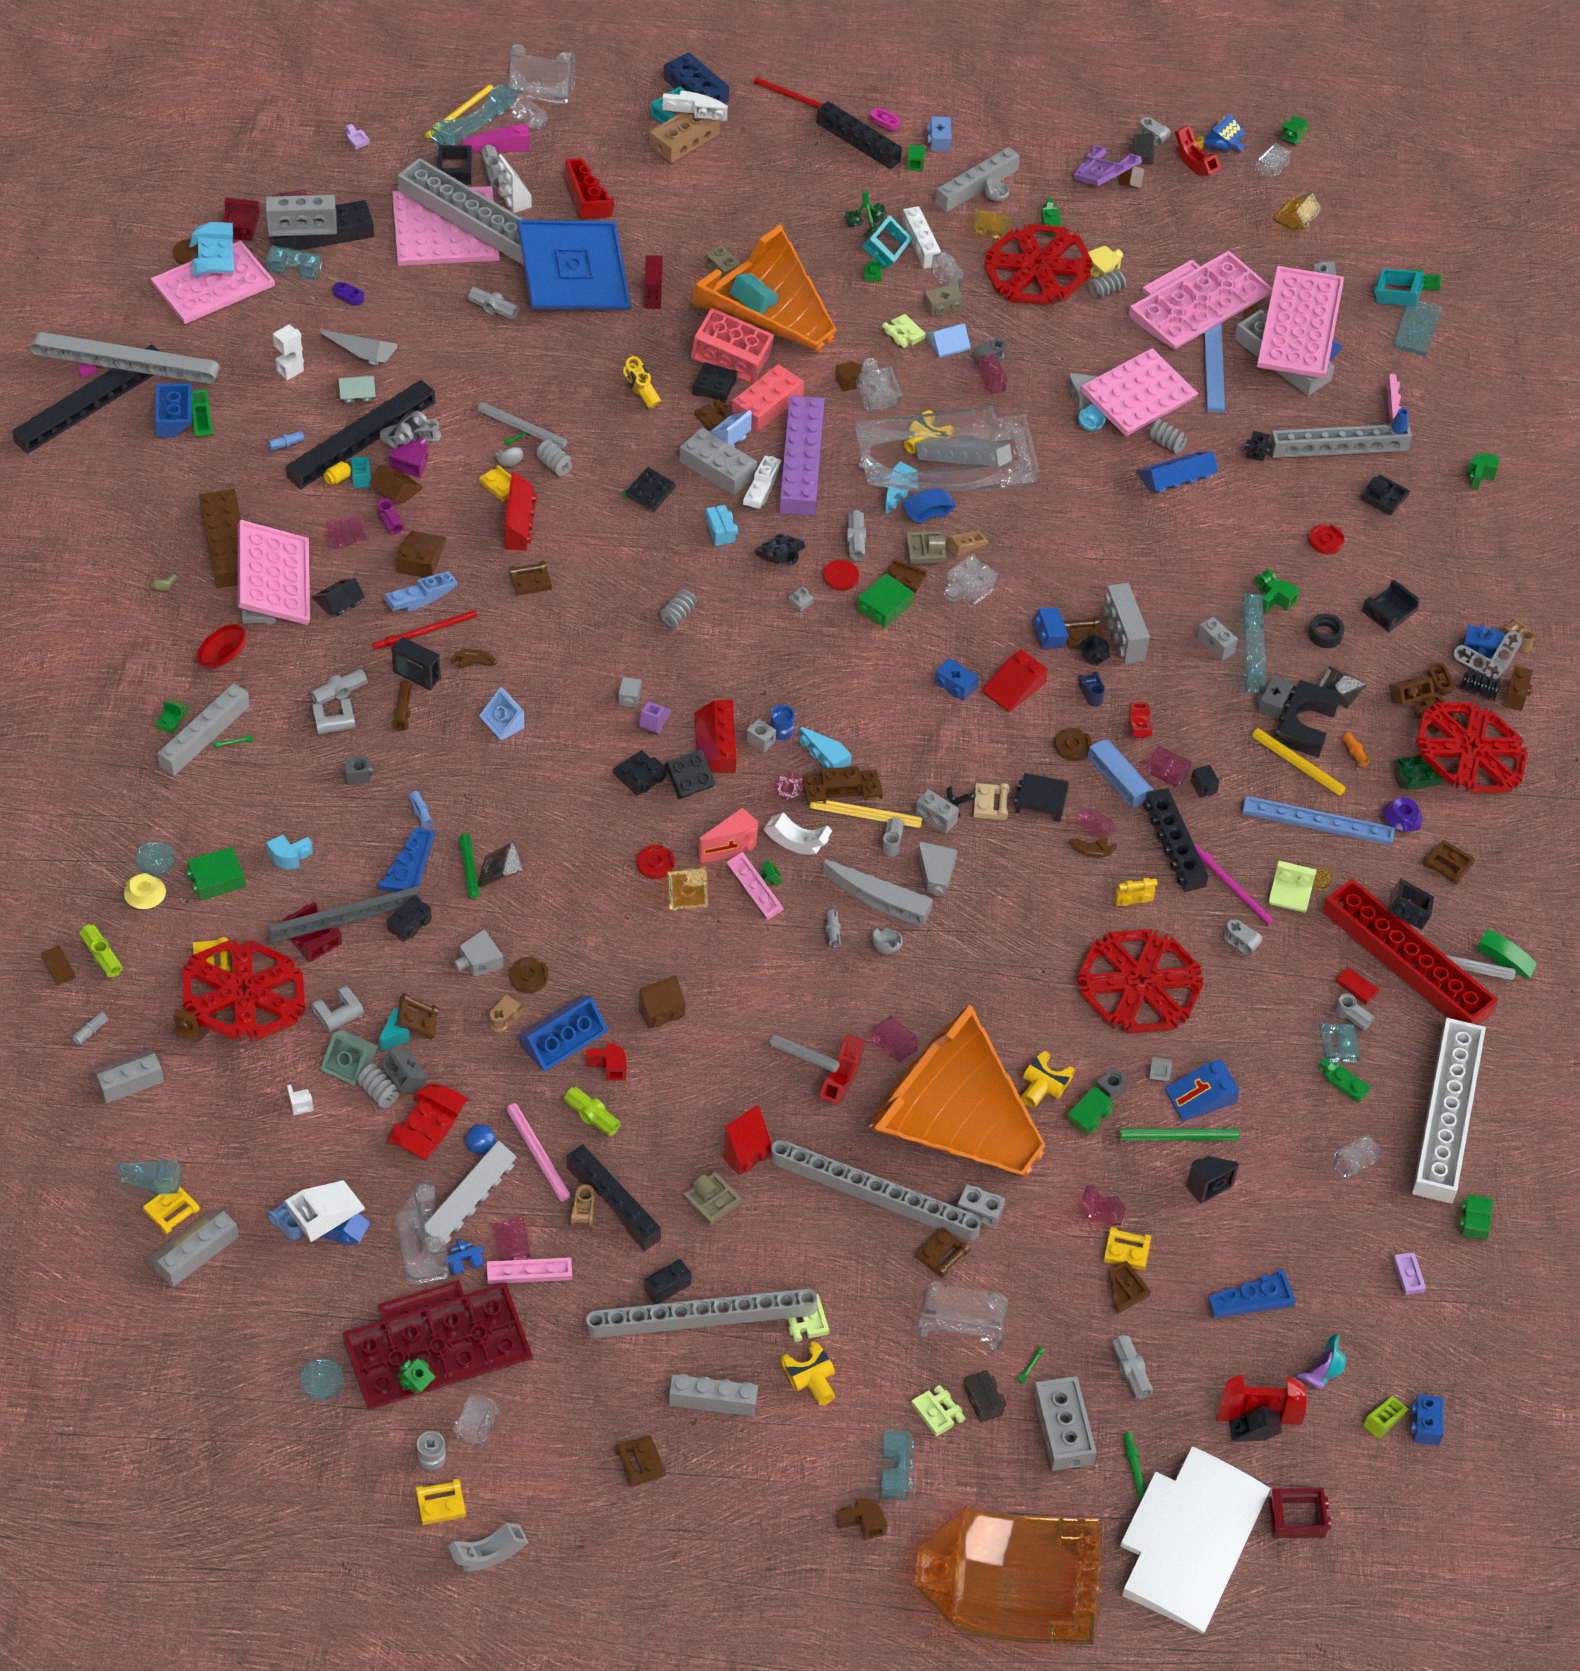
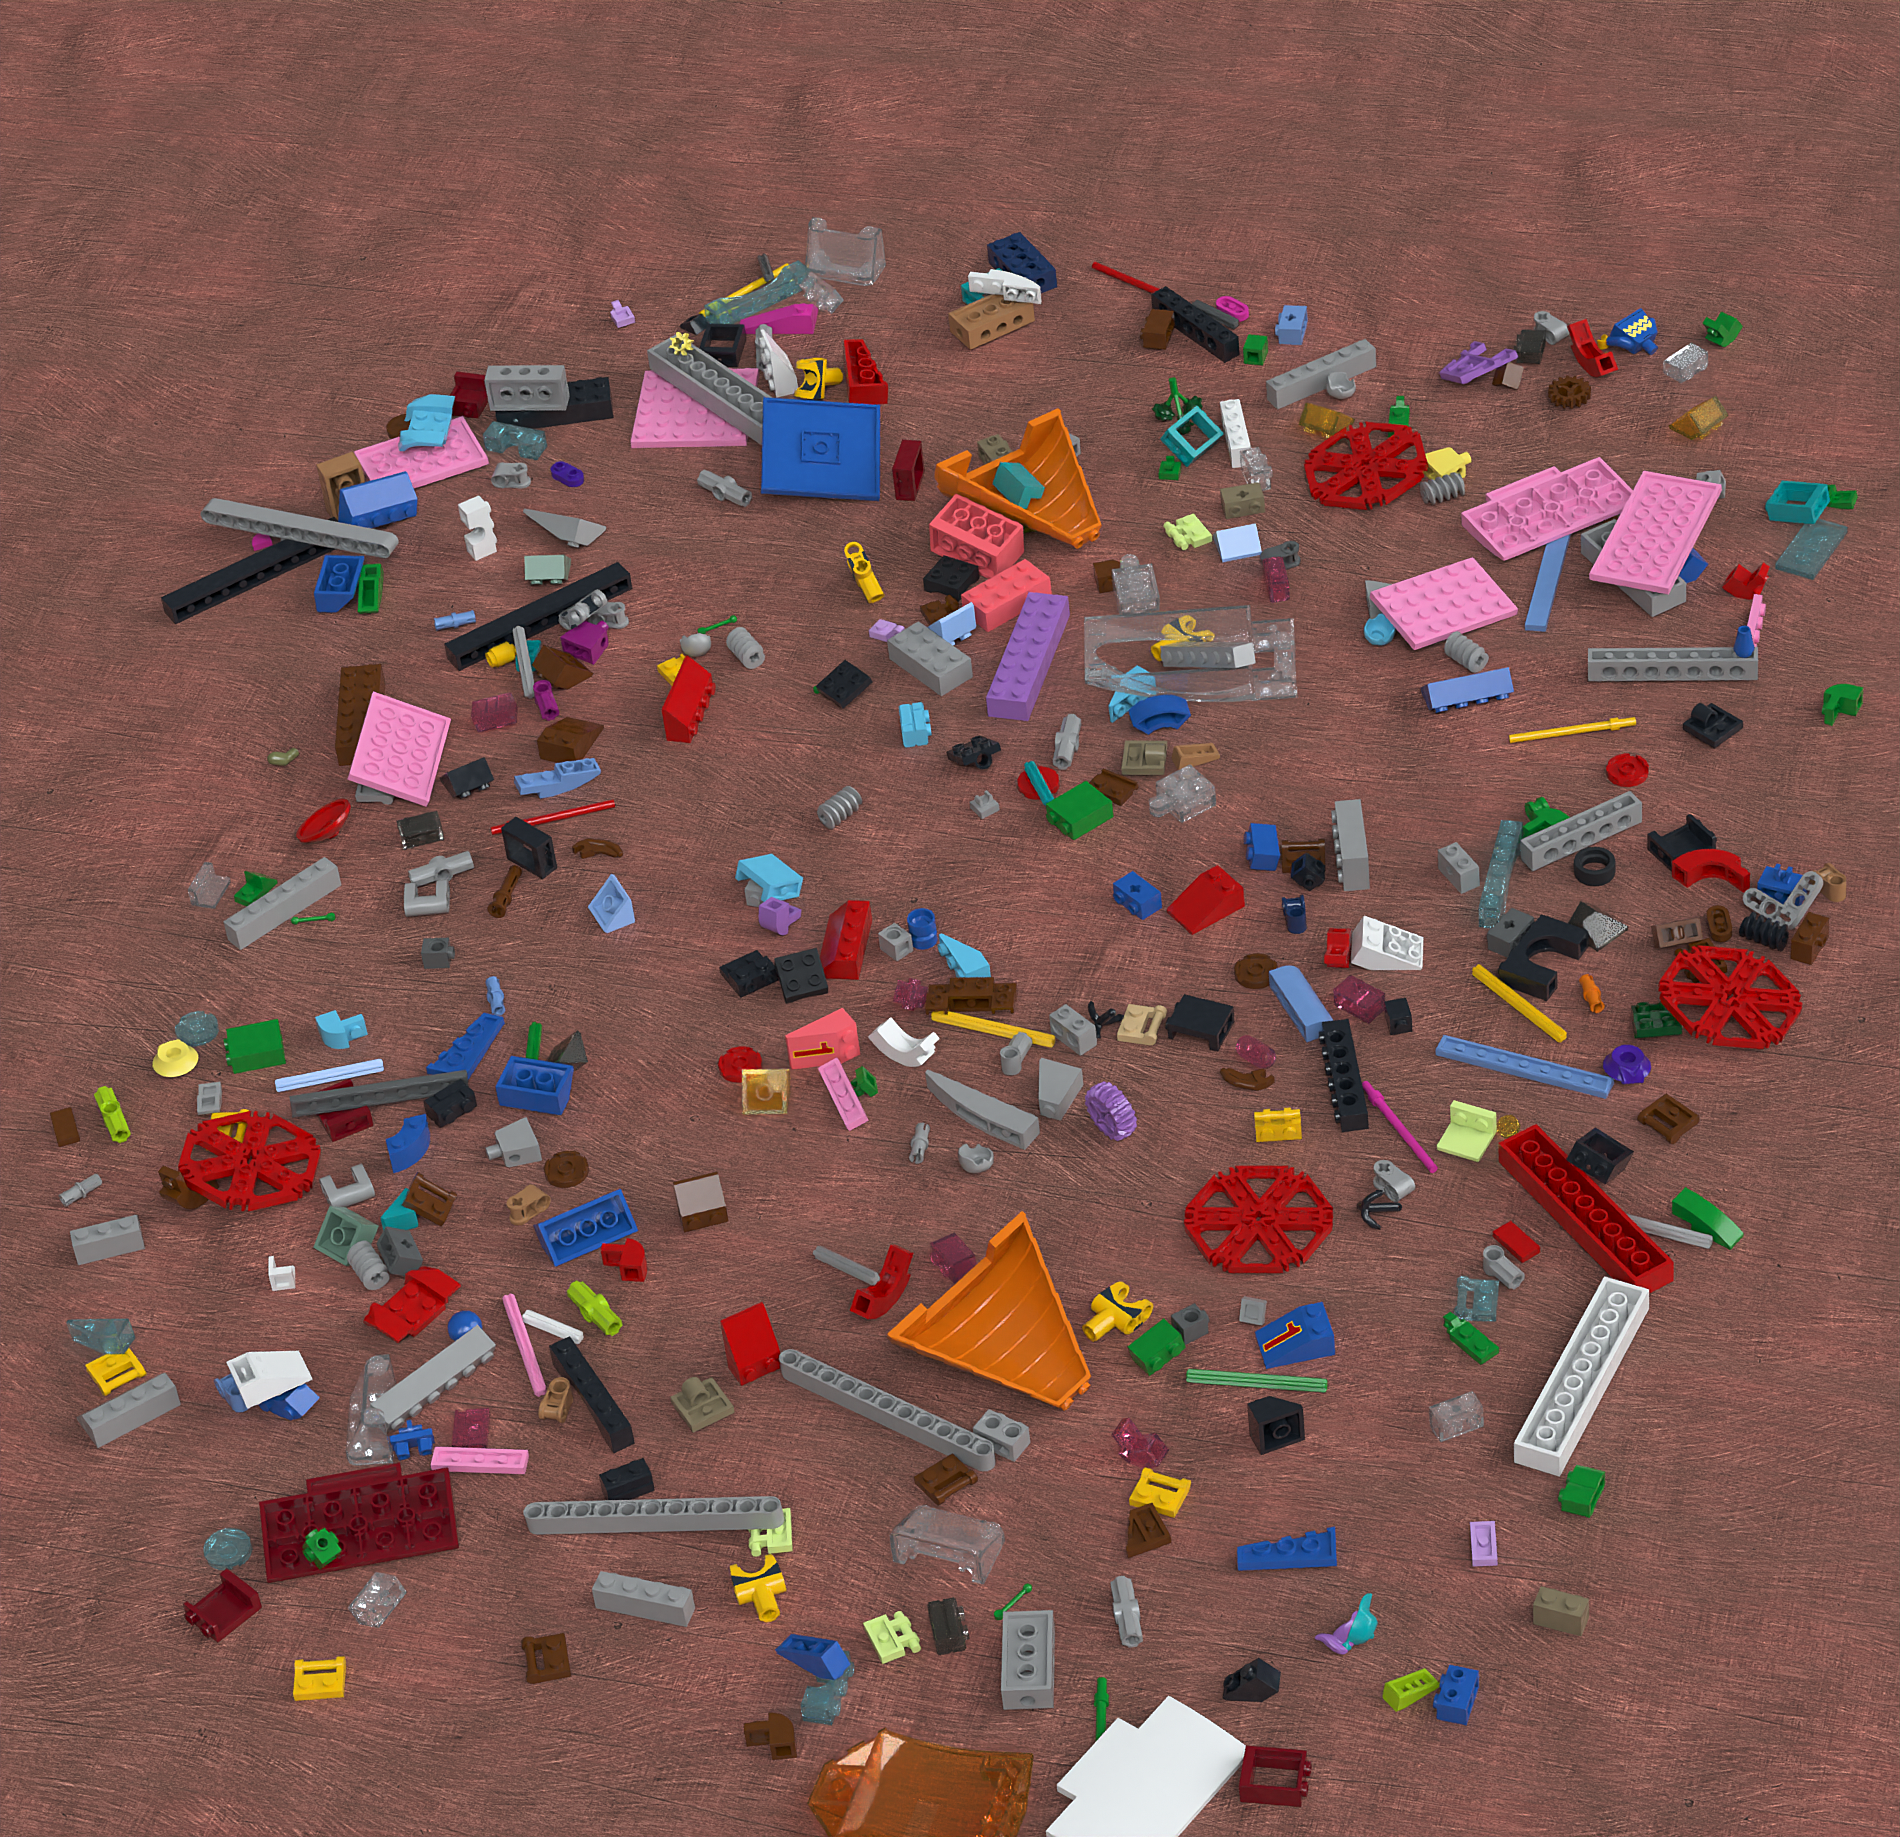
camera: 20 degrees right, 10 degrees down
(129, 717) = (207, 887): none -> clear panel
(155, 315) = (338, 474): none -> medium nougat brick
(186, 928) = (209, 1098): none -> light grey slope
(190, 329) = (378, 501): none -> slope
(290, 897) = (329, 1075): none -> light blue axle
(298, 296) = (509, 475): none -> light grey piece
(310, 649) = (420, 830): none -> clear smoke brick
(334, 1439) = (223, 1607): none -> dark red panel
(362, 480) = (523, 661): none -> light grey axle
(383, 962) = (409, 1143): none -> blue brick
(423, 144) = (695, 324): none -> black slope
(431, 1450) = (320, 1625): light grey wheel -> none
(432, 164) = (684, 347): none -> light yellow gear
(473, 89) = (765, 267): none -> dark grey axle
(483, 896) = (535, 1085): none -> blue slope
(491, 1550) = (354, 1730): light grey arch -> none
(521, 424) = (719, 613): light grey axle -> none
(530, 583) = (684, 775): reddish brown plate -> none
(549, 195) = (816, 377): none -> yellow connector
(558, 1132) = (552, 1326): none -> white axle
(638, 678) = (772, 875): none -> medium azure panel
(671, 435) = (884, 630): none -> lavender plate
(763, 482) = (976, 683): white slope -> none
(829, 140) = (1158, 329): none -> reddish brown brick
(845, 577) = (1038, 782): none -> teal axle
(884, 130) = (1217, 315): none -> dark grey axle
(886, 1441) = (816, 1655): none -> blue slope
(994, 889) = (1110, 1111): none -> medium lavender gear
(1176, 716) = (1385, 947): none -> white slope
(1186, 190) = (1569, 392): none -> reddish brown gear
(1233, 962) = (1366, 1206): none -> black piece
(1258, 446) = (1571, 666): black brick -> none
(1287, 1401) = (1233, 1650): red piece -> none
(1303, 497) = (1613, 724): none -> yellow bar
(1309, 599) = (1581, 830): none -> light grey brick
(1378, 364) = (1745, 584): none -> red brick
(1422, 624) = (1710, 864): none -> red arch
(1491, 1332) = (1561, 1611): none -> dark tan brick

